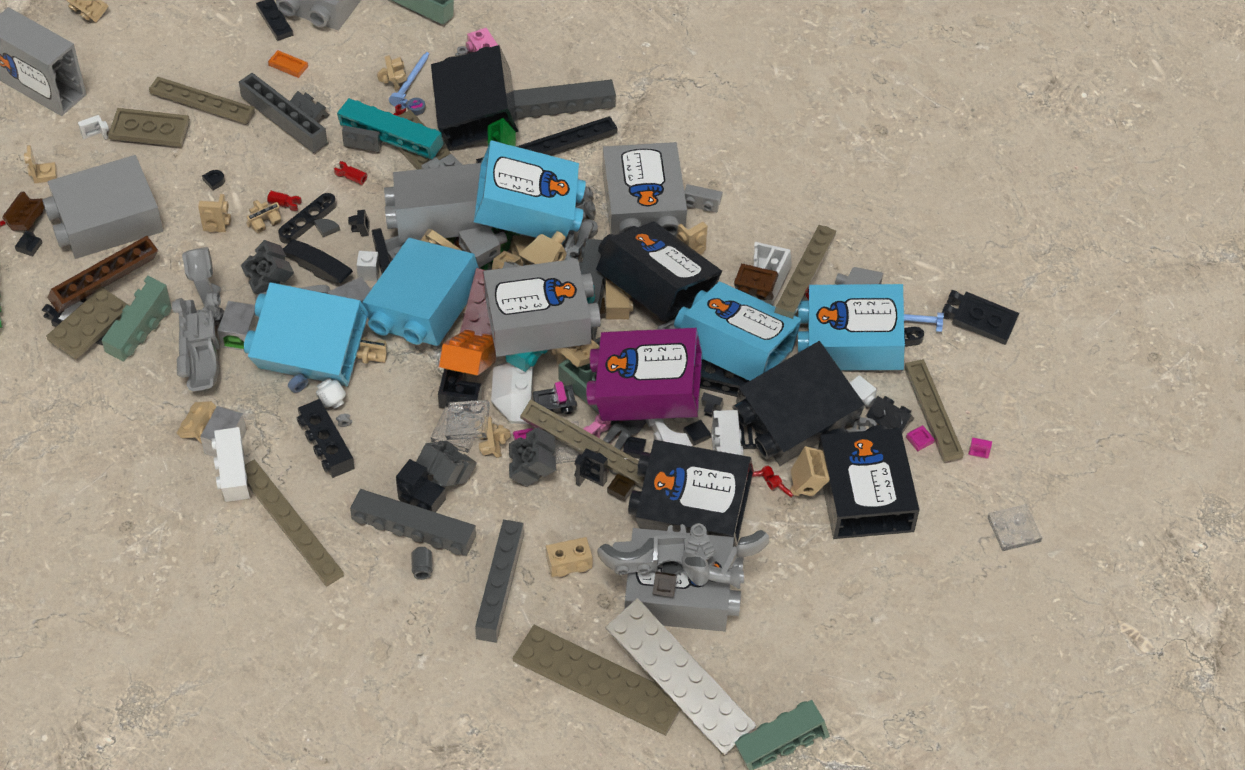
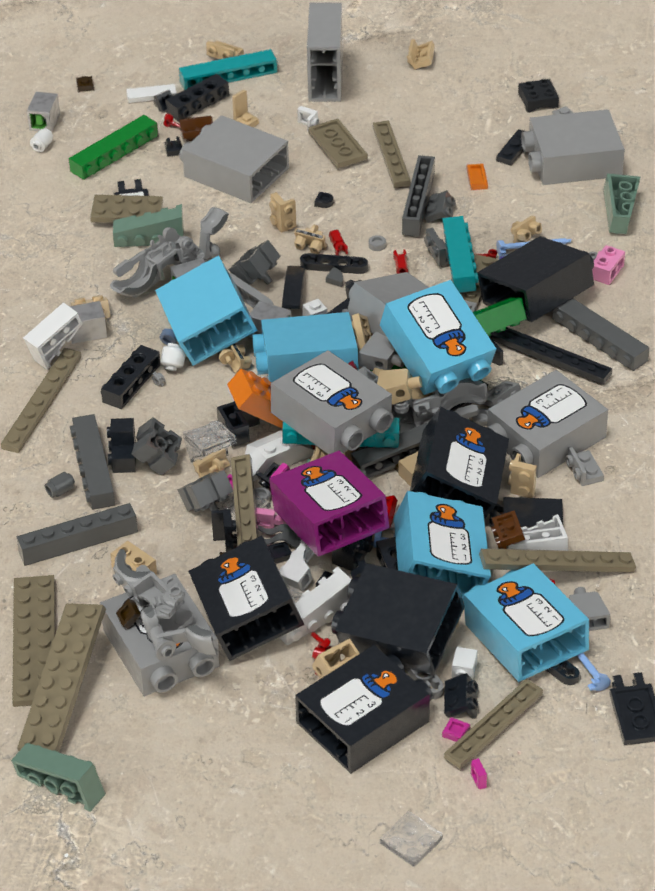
camera: 60 degrees right, 10 degrees down
(102, 274) = (171, 188): reddish brown brick -> none
(308, 175) = (377, 243): none -> light grey tile
(728, 256) = (529, 510): none -> black tile

